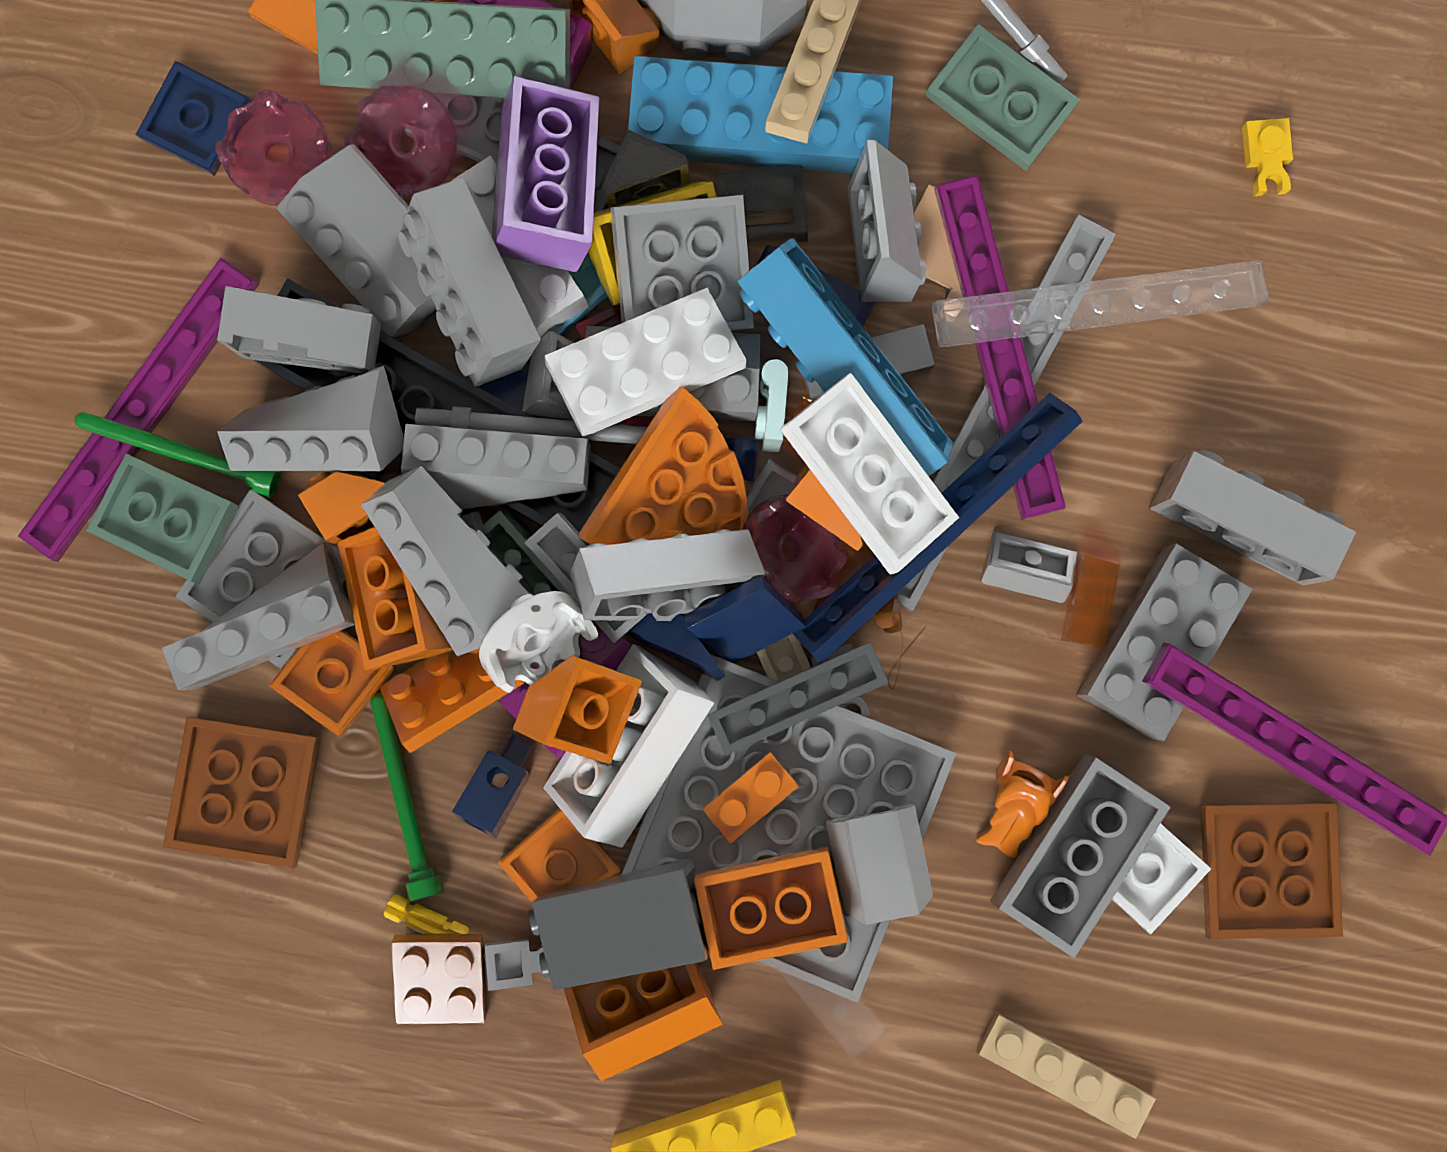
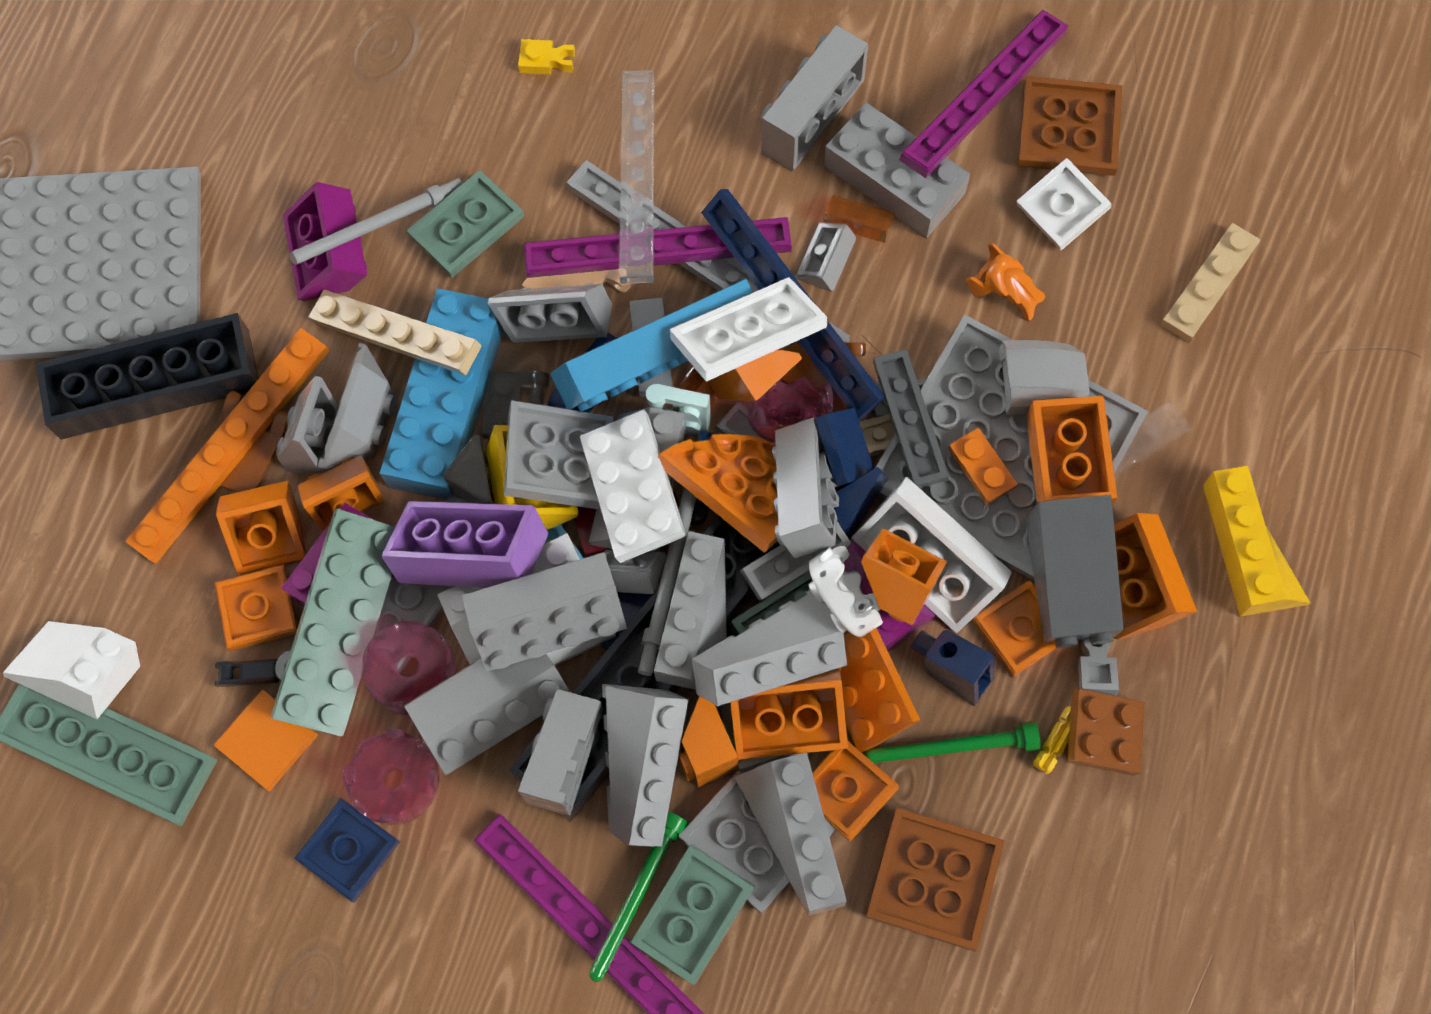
camera: 80 degrees left, 15 degrees down
(1080, 855) = (1051, 244): light grey slope -> none

